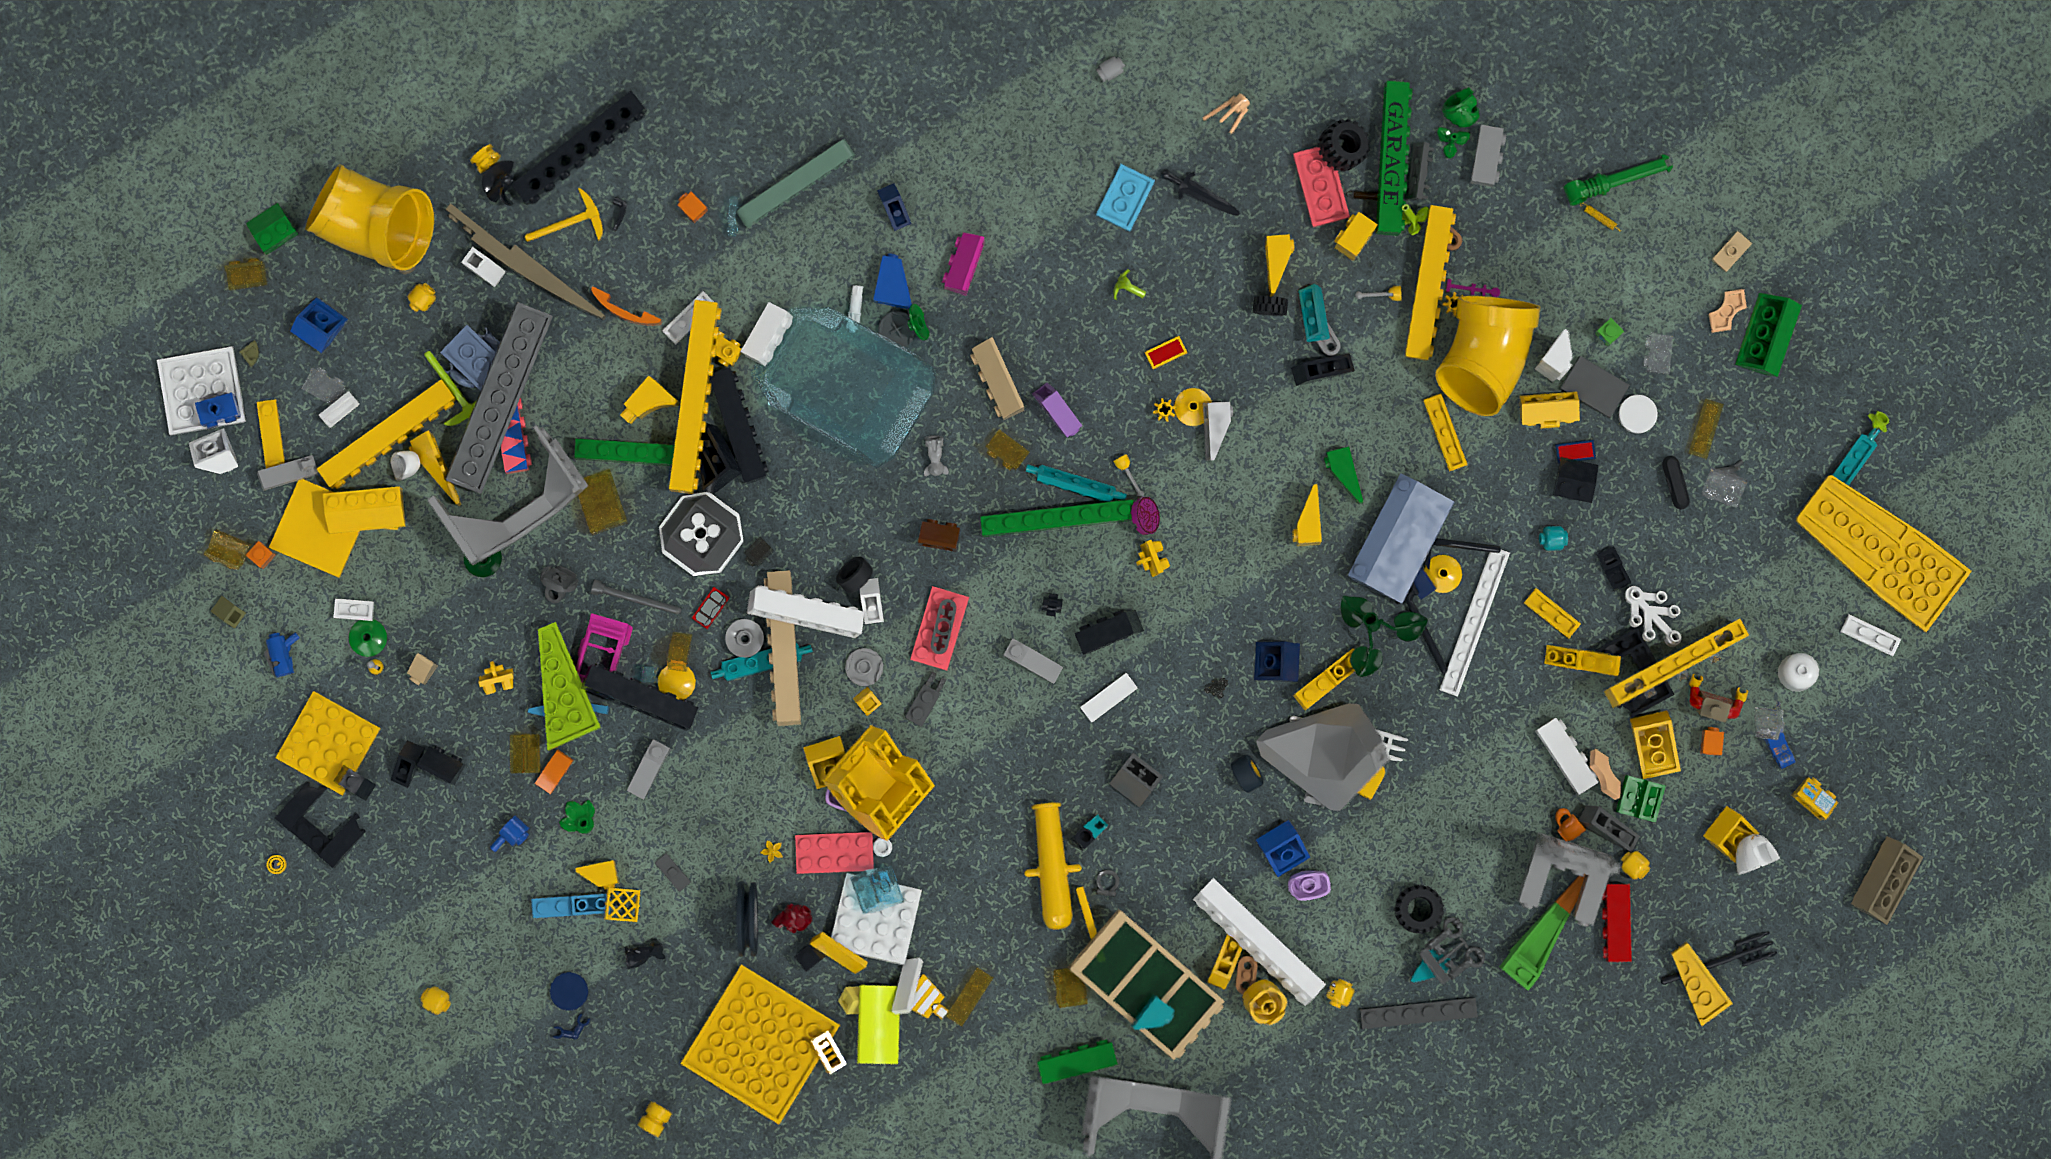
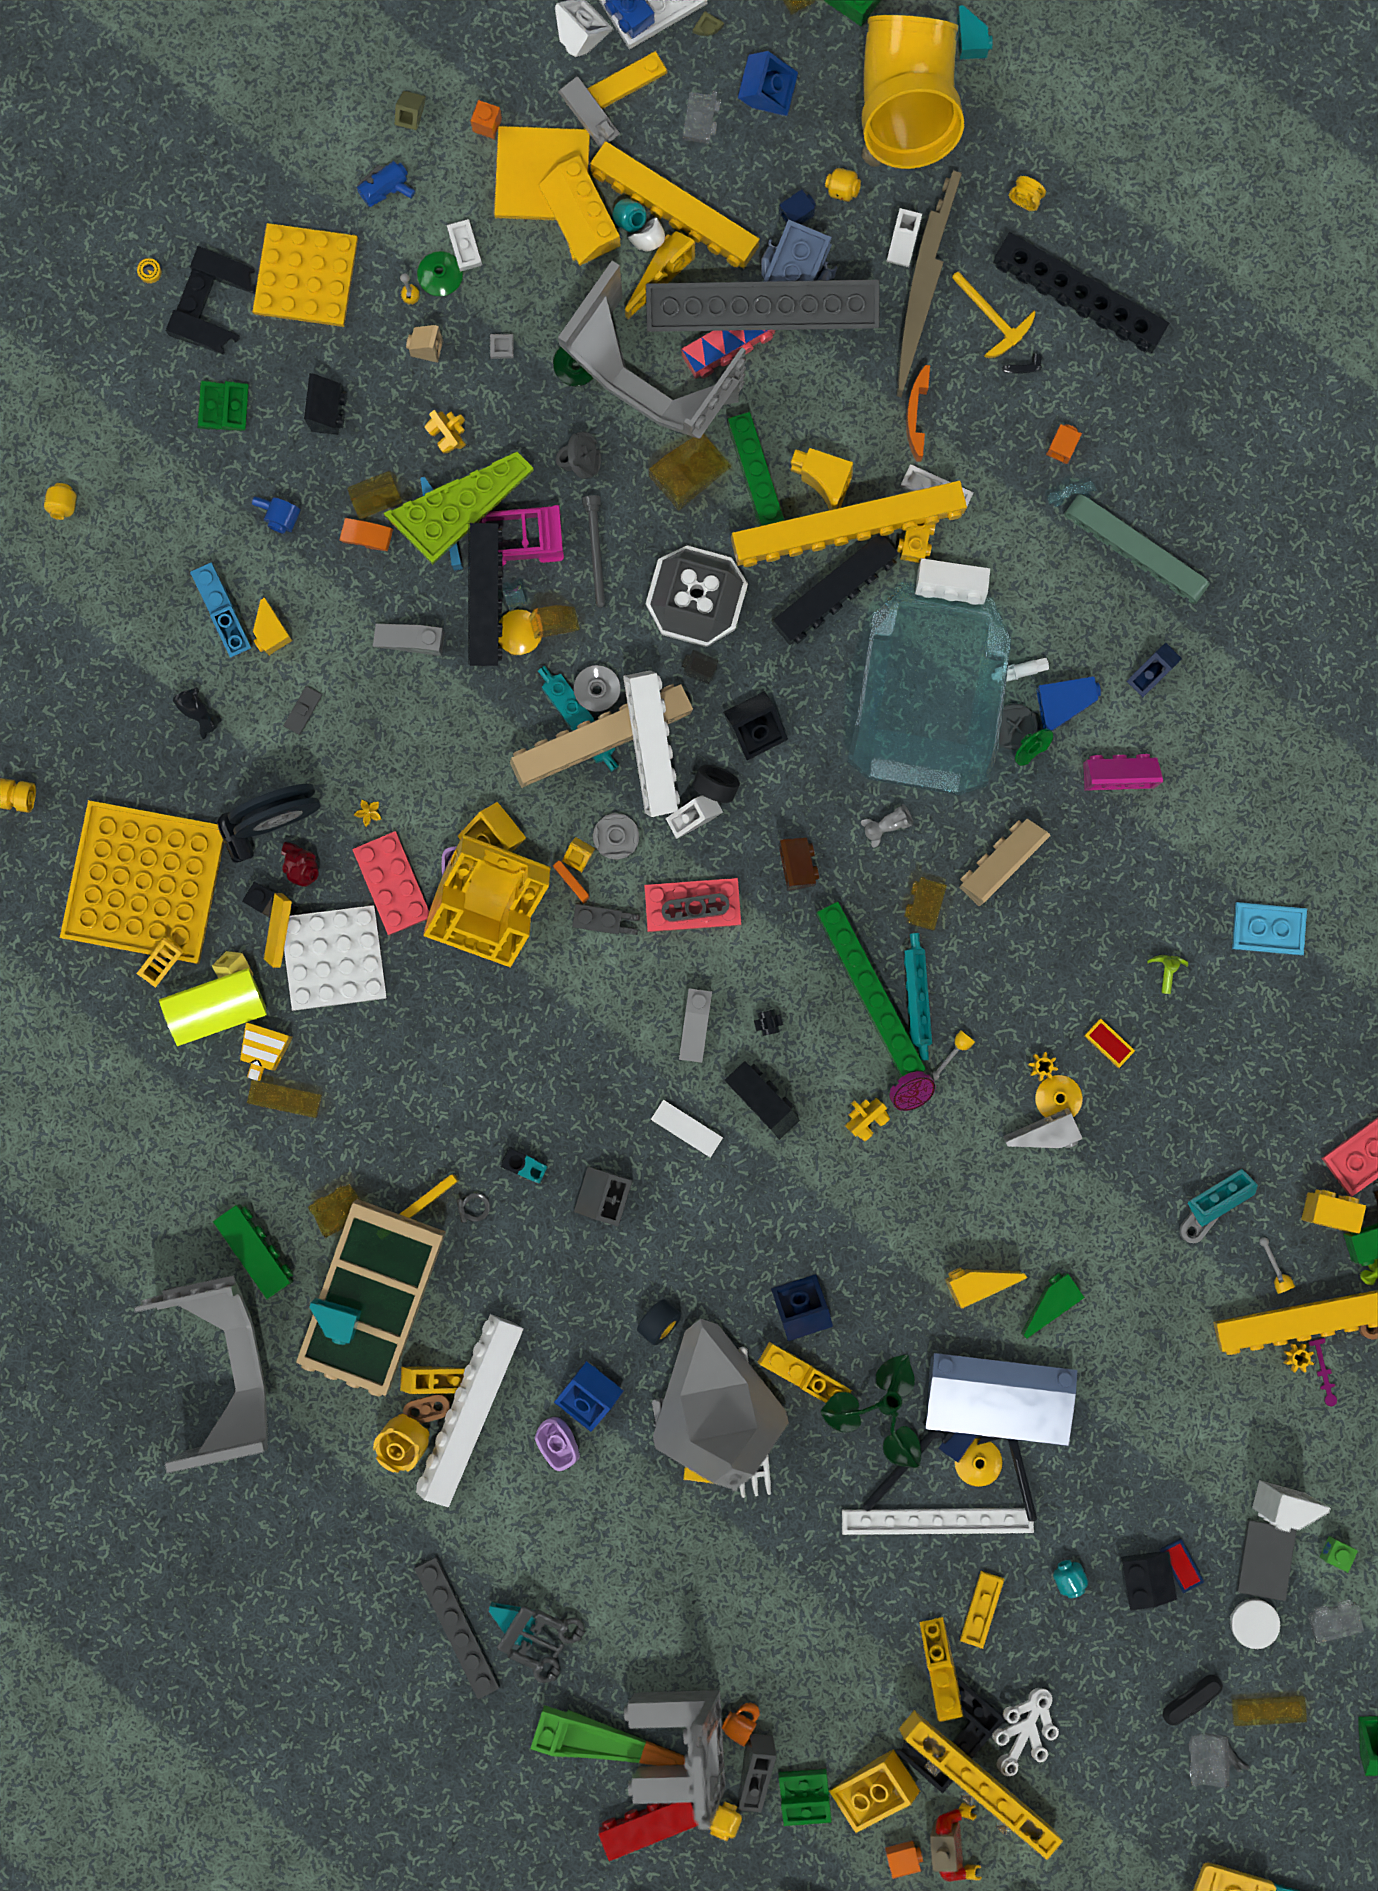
camera: 70 degrees right, 0 degrees up
(227, 550) = (477, 81): clear yellow bracket -> none
(339, 409) = (682, 142): white tile -> none
(342, 151) = (972, 35): none -> teal slope
(354, 782) = (269, 318): black slope -> none
(382, 472) = (629, 215): none -> teal head
(406, 763) = (315, 363): black slope -> none
(407, 846) = (222, 406): none -> green slope
(427, 339) = (797, 208): none -> dark blue brick
(445, 610) = (501, 346): none -> light grey tile
(467, 407) = (755, 256): lime piece -> none
(498, 181) = (1006, 216): black piece -> none
(569, 991) = (126, 646): dark blue tile -> none
(575, 1033) = (79, 670): dark blue arm -> none
(576, 815) = (327, 578): green plate -> none
(634, 905) = (237, 649): yellow window -> none
(710, 608) = (617, 638): tile -> none
(717, 461) = (786, 578): black wedge -> none
(763, 960) = (238, 848): none -> black arm
(820, 527) = (755, 725): none -> black slope
(877, 889) = (365, 946): clear light blue slope -> none
(882, 848) = (415, 935): white tile -> none
(886, 714) = (571, 881): none -> orange tile
(907, 986) = (267, 1023): white tile -> none
(1052, 867) = (466, 1137): yellow piece -> none
(1057, 410) = (994, 943): medium lavender slope -> none
(1199, 192) = (1309, 1011): black sword -> none
(1217, 687) = (745, 1248): clear smoke plant -> none
(1270, 306) = (1212, 1143): black tyre -> none
(1277, 256) = (1278, 1128): yellow slope -> none
(1322, 369) = (1161, 1231): black slope -> none
(1340, 993) = (445, 1527): yellow head -> none
(1433, 899) = (571, 1604): black tyre -> none
(1445, 432) = (1144, 1403): yellow tile -> none
(1487, 352) = (1259, 1421): yellow cylinder -> none
(1549, 409) = (1220, 1517): yellow piece -> none
(1566, 755) = (821, 1691): white brick -> none
(1600, 765) = (810, 1752): light nougat tile -> none
(1613, 568) = (1062, 1662): black slope -> none

